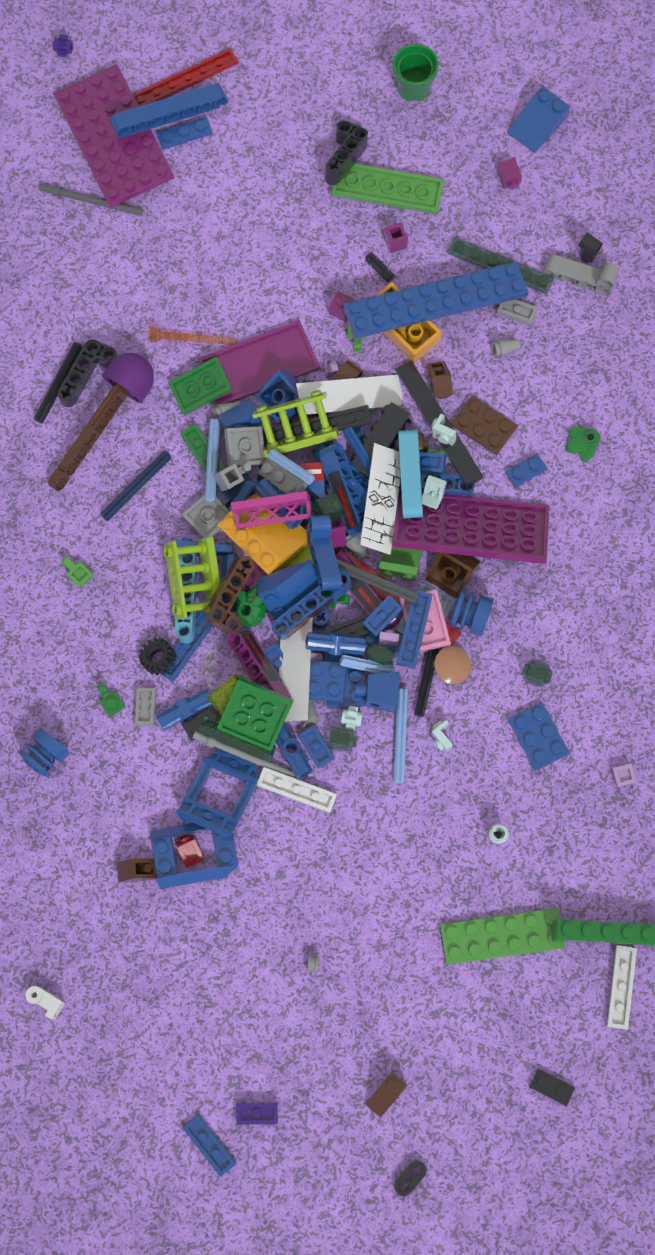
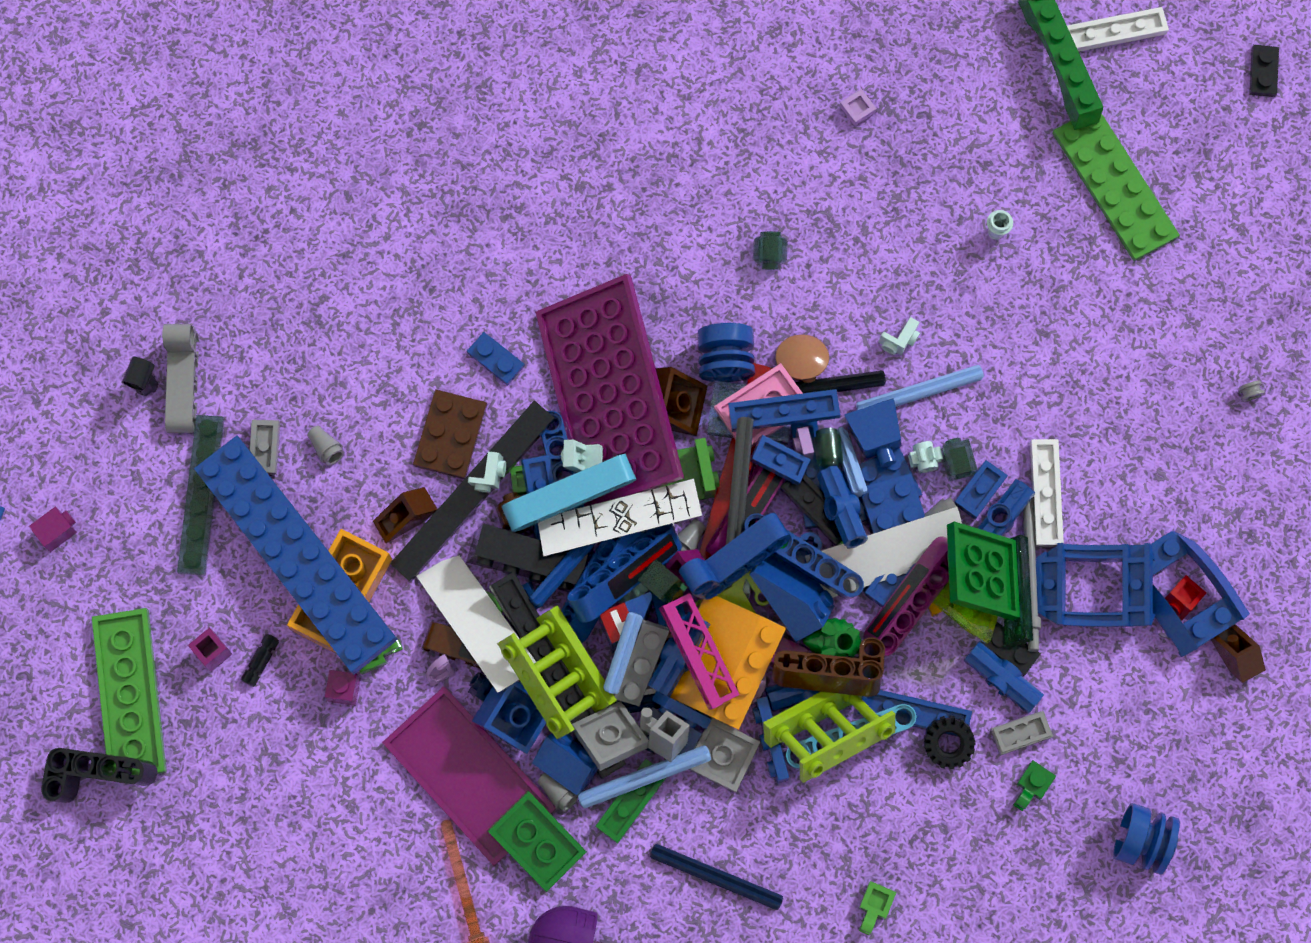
camera: 115 degrees left, 0 degrees up
(538, 736) = (850, 224): blue plate -> none
(580, 443) = (430, 303): green plate -> none

